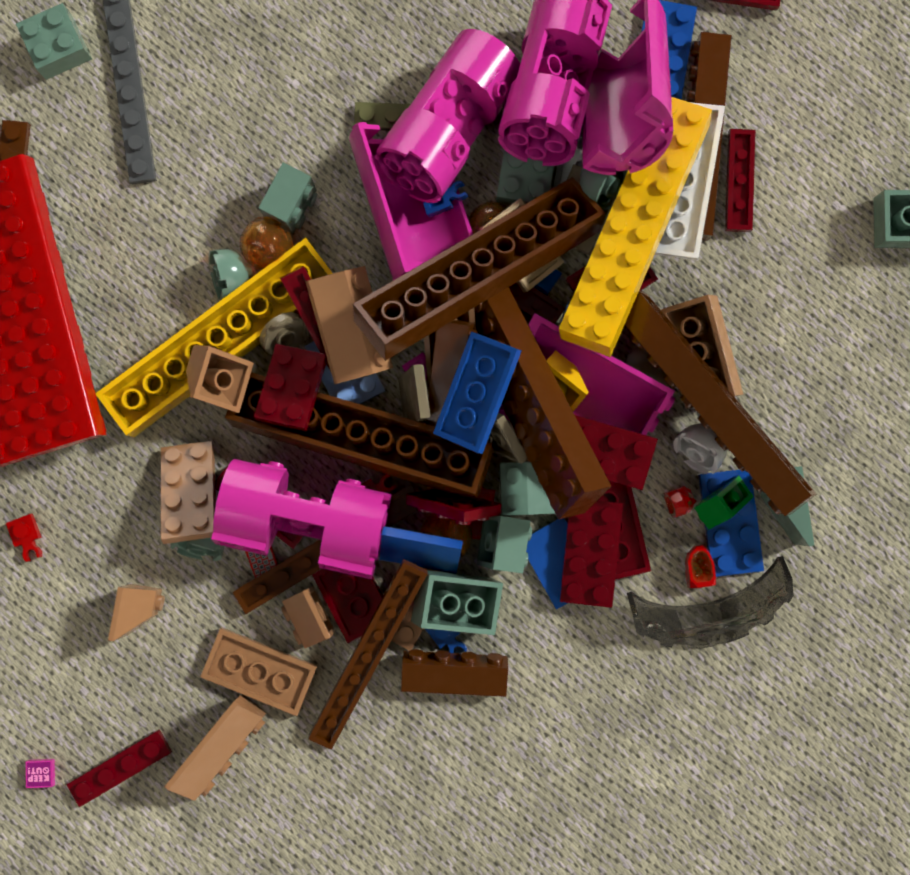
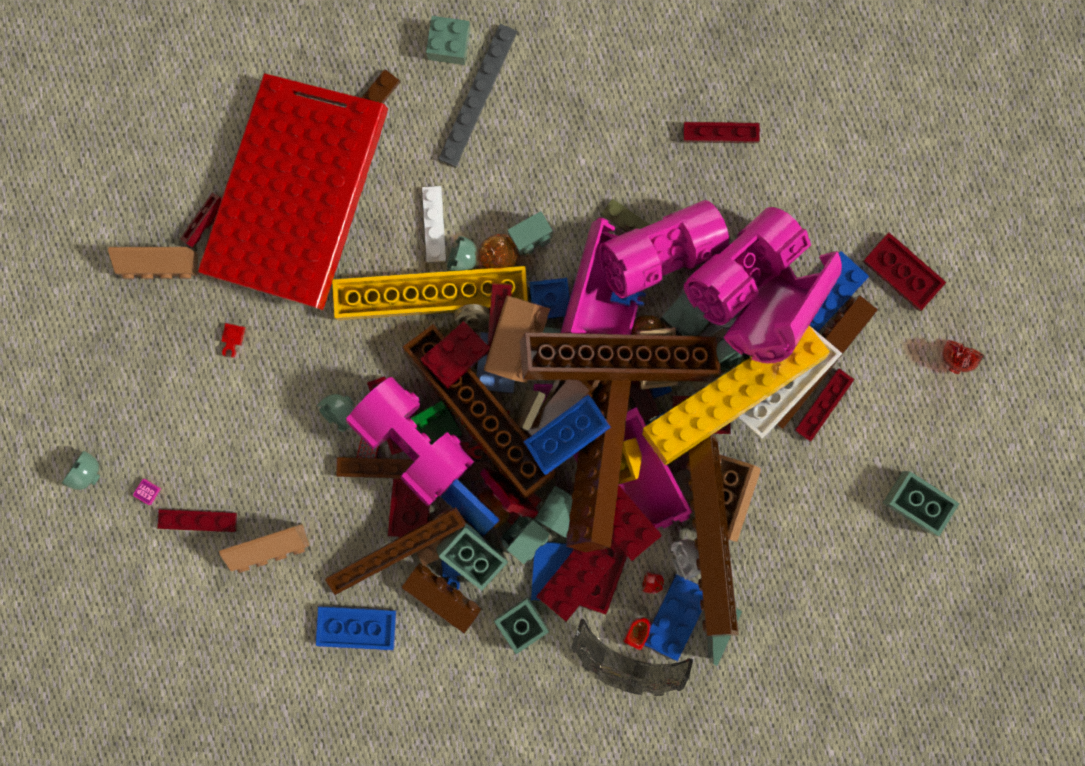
camera: 35 degrees right, 0 degrees up
(133, 608) = (270, 427): medium nougat slope -> none
(173, 259) = (434, 224): none -> white plate
(187, 492) = (349, 377): medium nougat plate -> none
(218, 377) = (414, 319): medium nougat slope -> none
(259, 671) = (321, 517): medium nougat plate -> none
(308, 617) = (373, 504): medium nougat slope -> none
(319, 477) = (436, 422): none -> green bracket
(358, 250) = (551, 294): none -> blue plate
(379, 770) = (356, 628): none -> blue plate
(505, 441) = (565, 475): dark tan tile -> none
(564, 644) = (521, 625): none -> sand green brick
(723, 503) = (679, 602): green slope -> none
(856, 31) = (960, 357): none -> clear red cylinder

